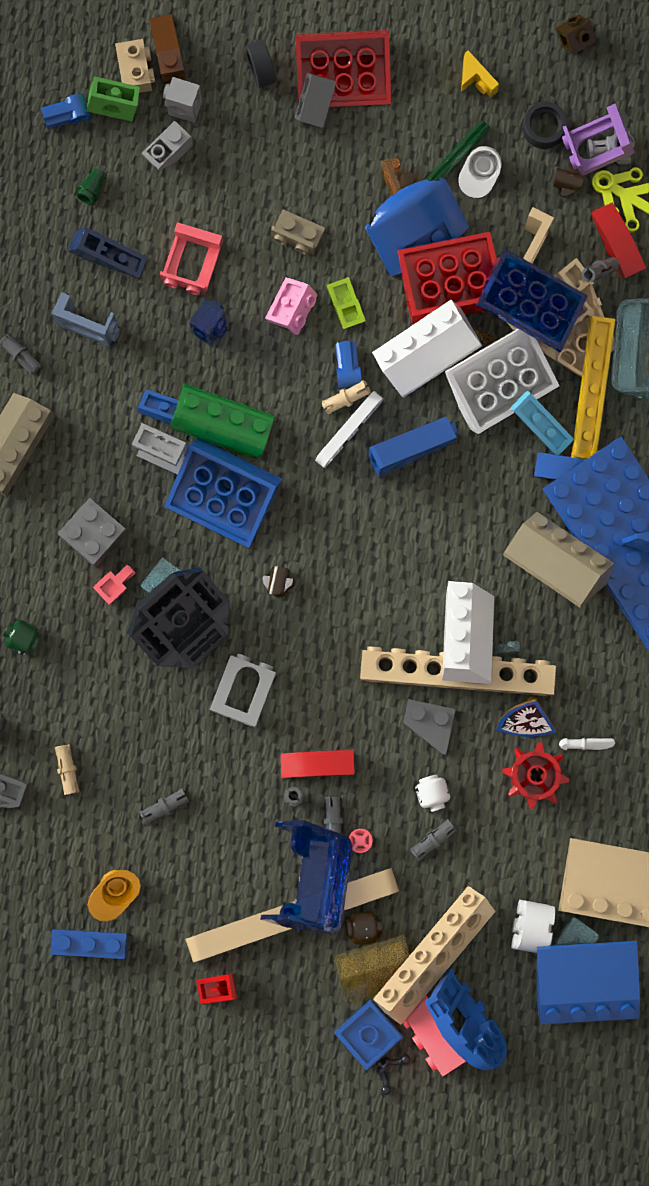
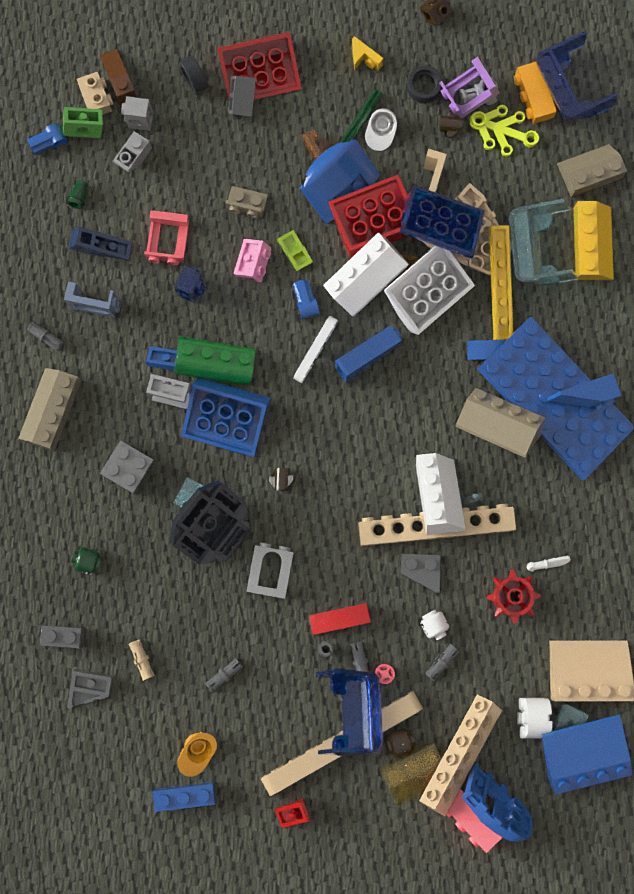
camera: 10 degrees left, 0 degrees up
(112, 586) = (150, 506): coral plate -> none
(346, 397) = (308, 324): tan pin -> none
(368, 1034) = (419, 827): blue plate -> none
(382, 1066) = (435, 852): black piece -> none
(526, 720) = (498, 553): shield -> none
(542, 423) = (466, 317): medium azure plate -> none
(600, 269) = (490, 188): dark grey pin -> none
(618, 240) = (498, 164): red slope -> none

